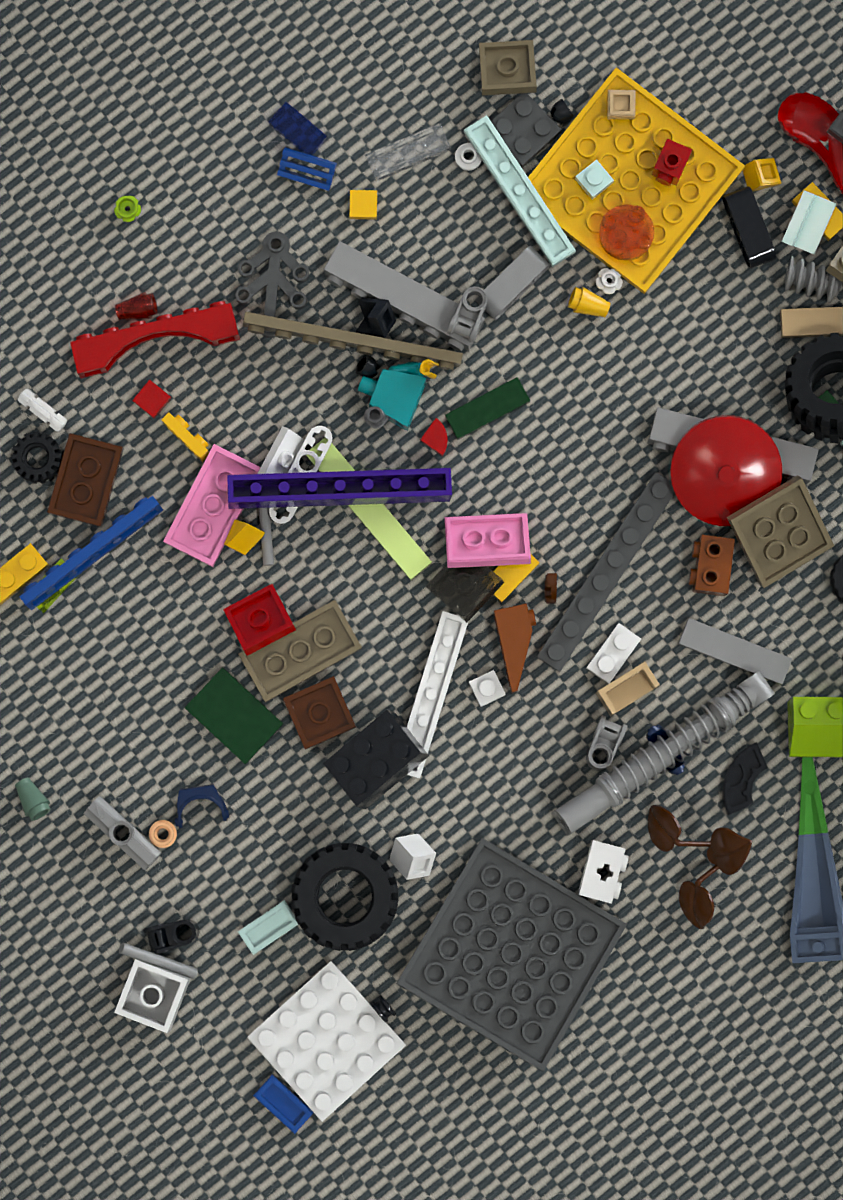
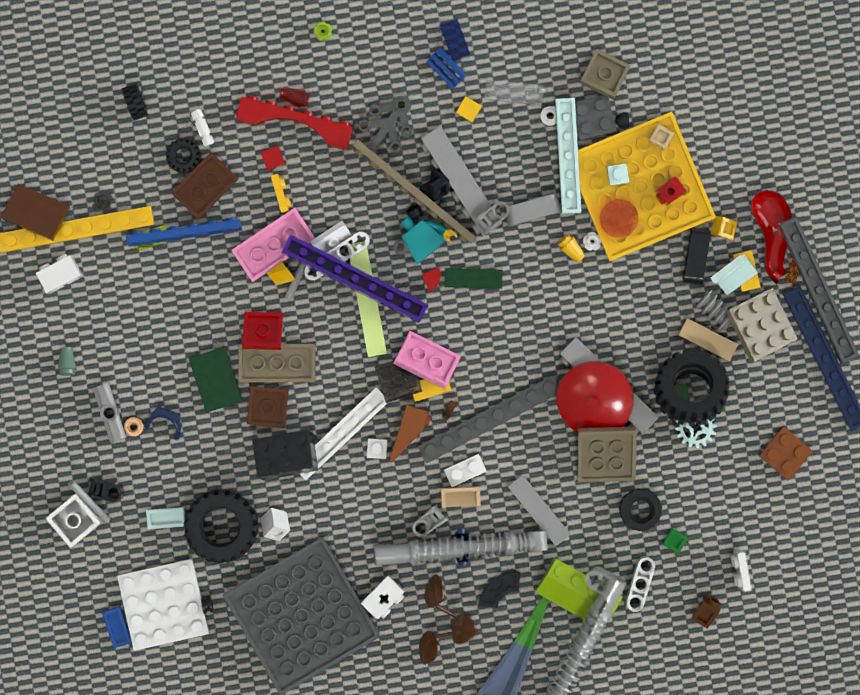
camera: 30 degrees right, 5 degrees up
(712, 565) = (554, 451): dark orange brick -> none

